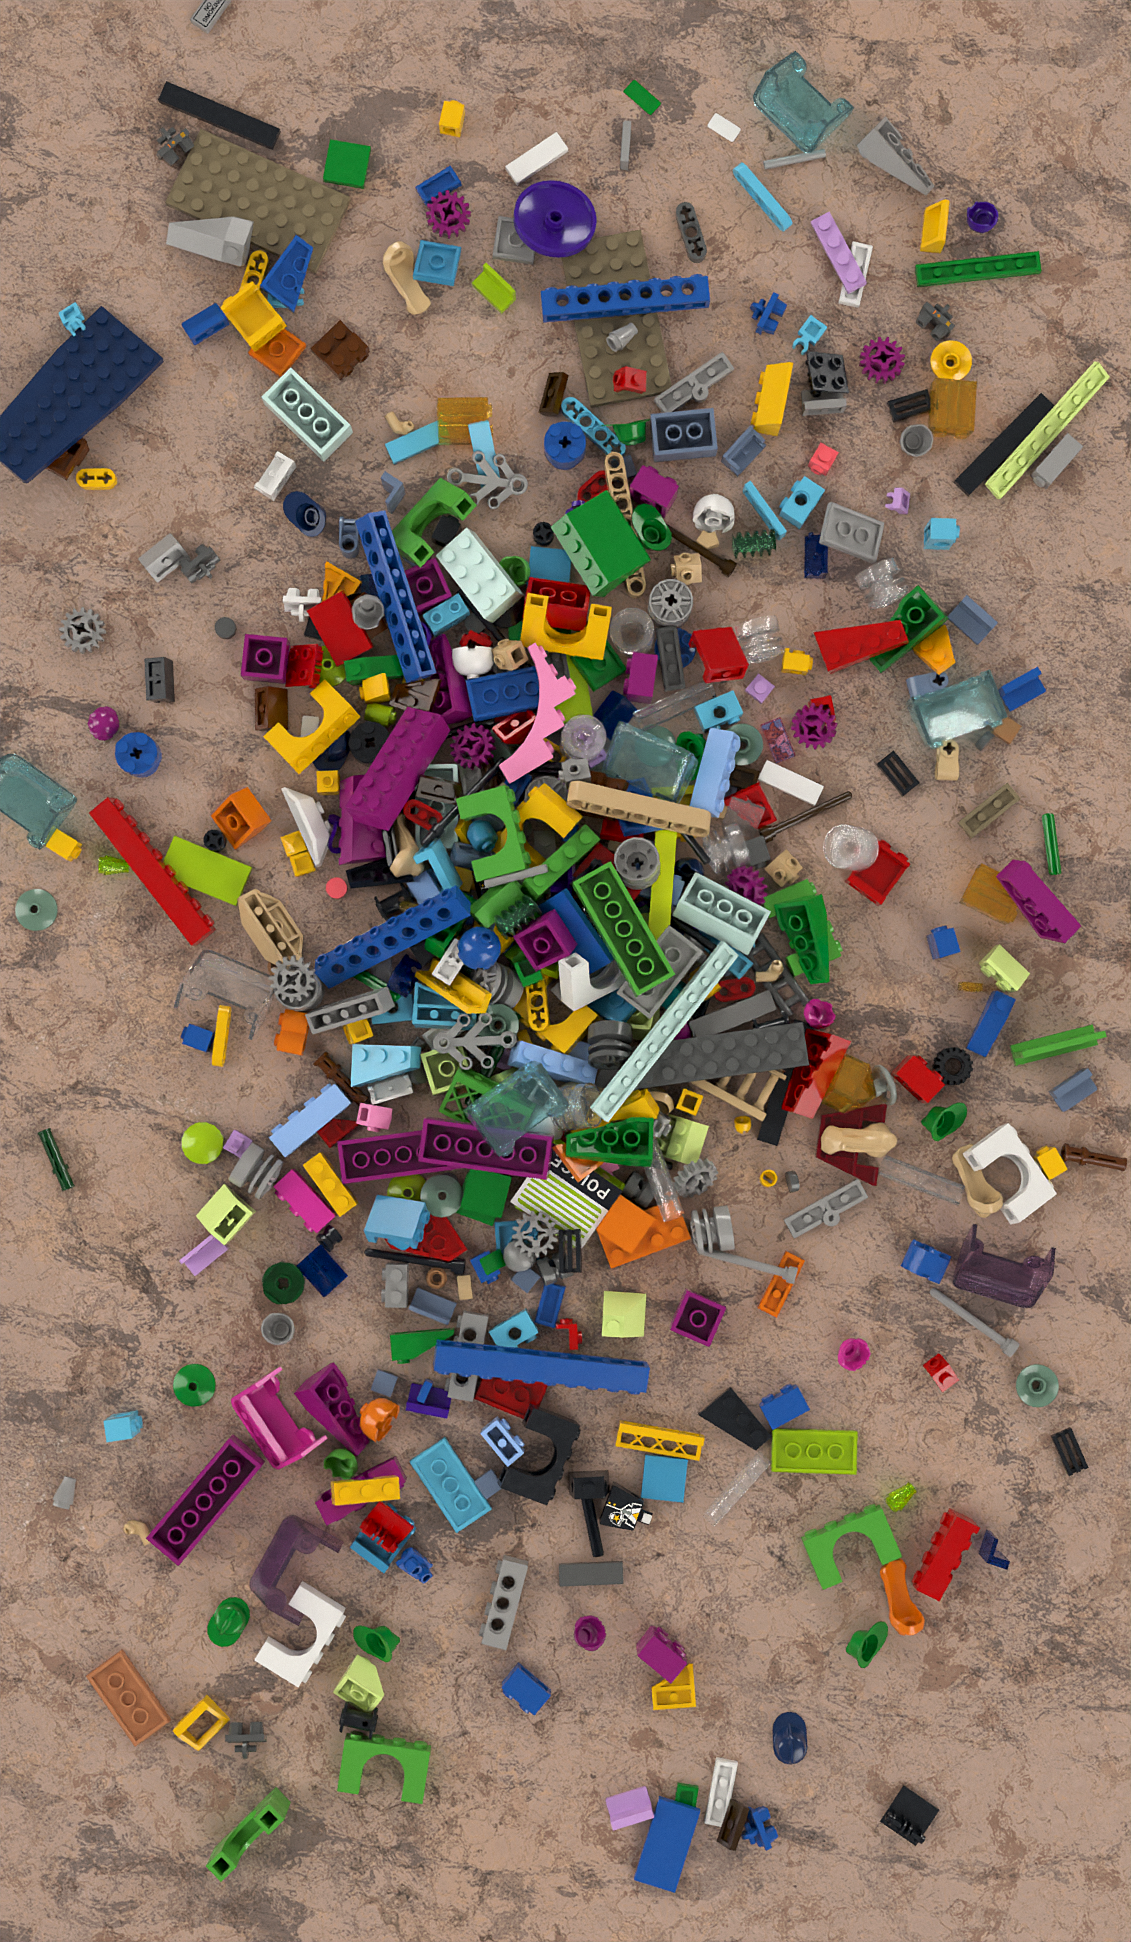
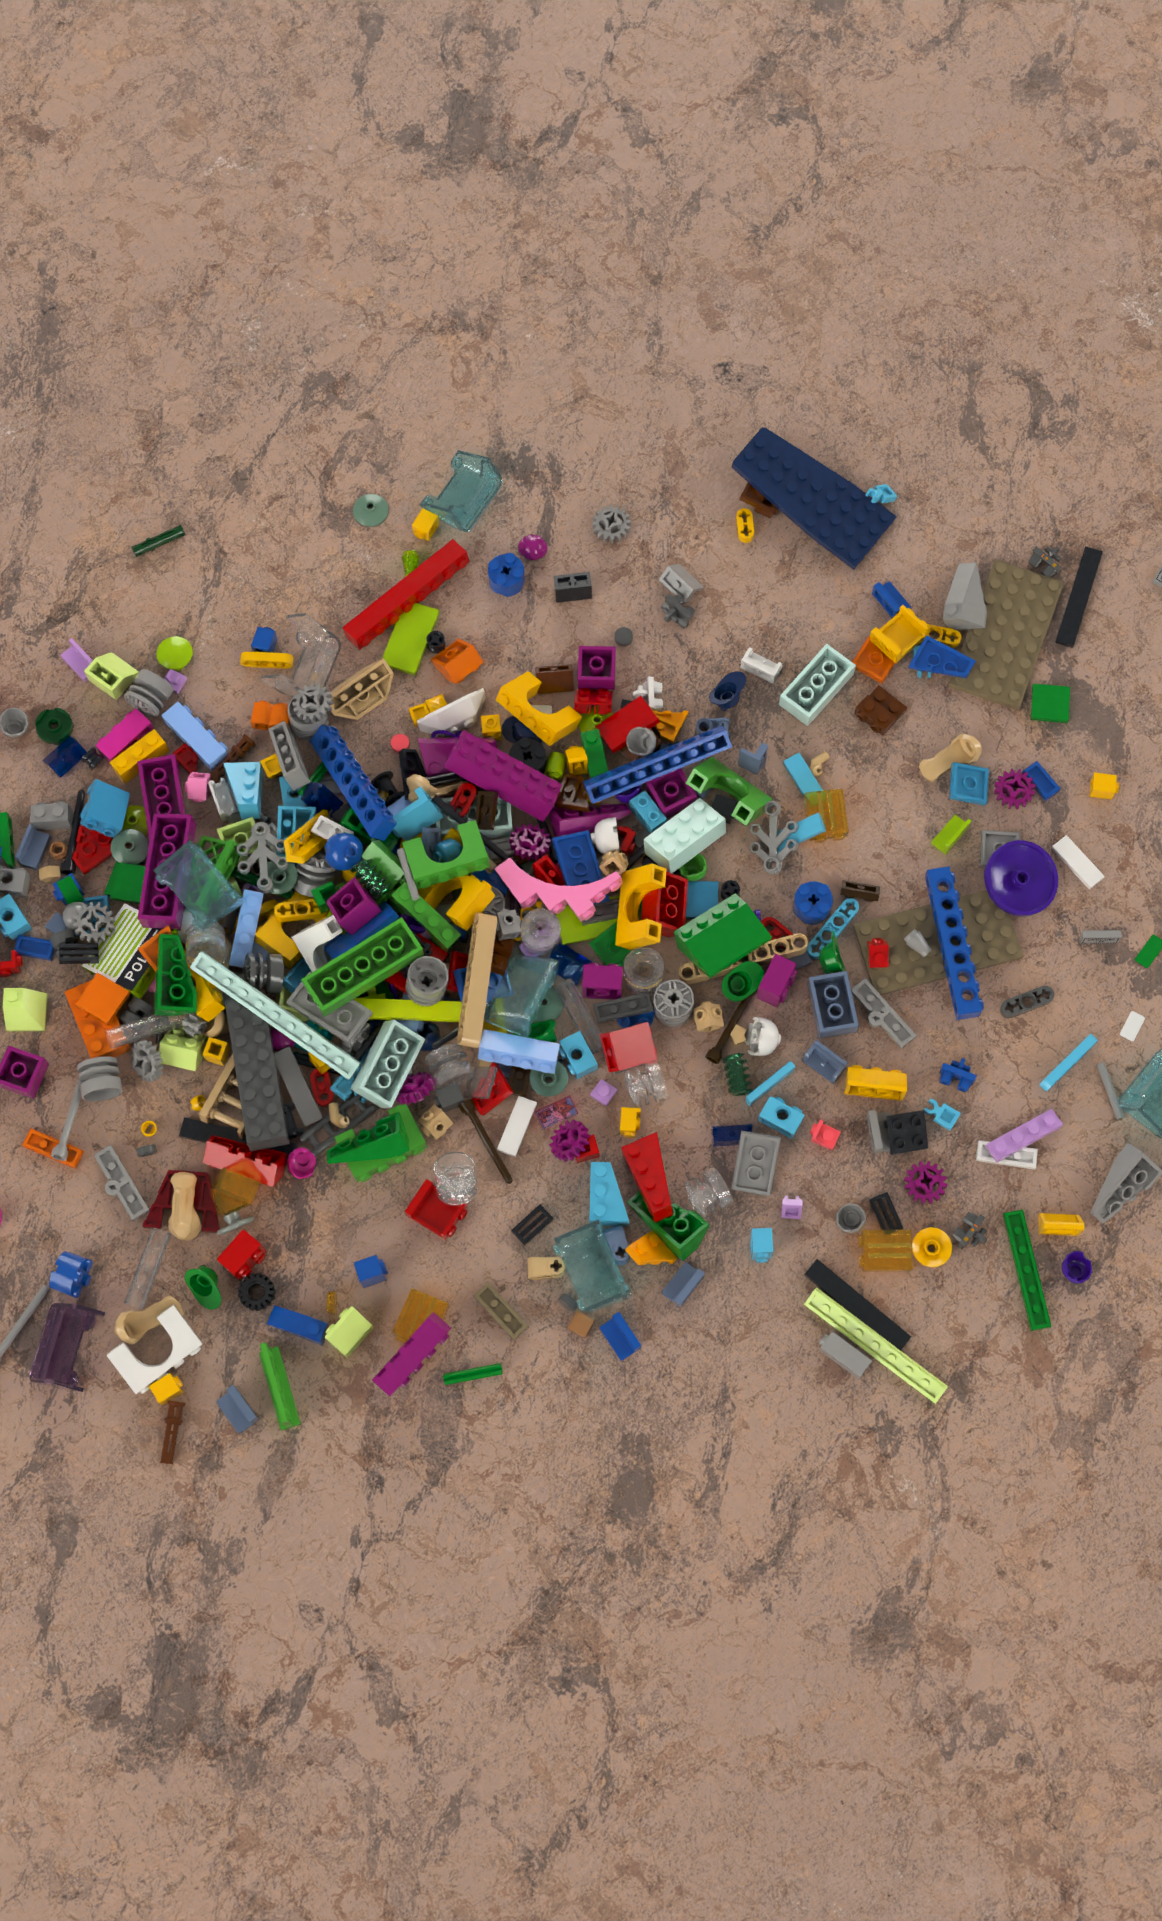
camera: 90 degrees right, 15 degrees down
(876, 694) = (605, 1196): none -> medium azure wedge

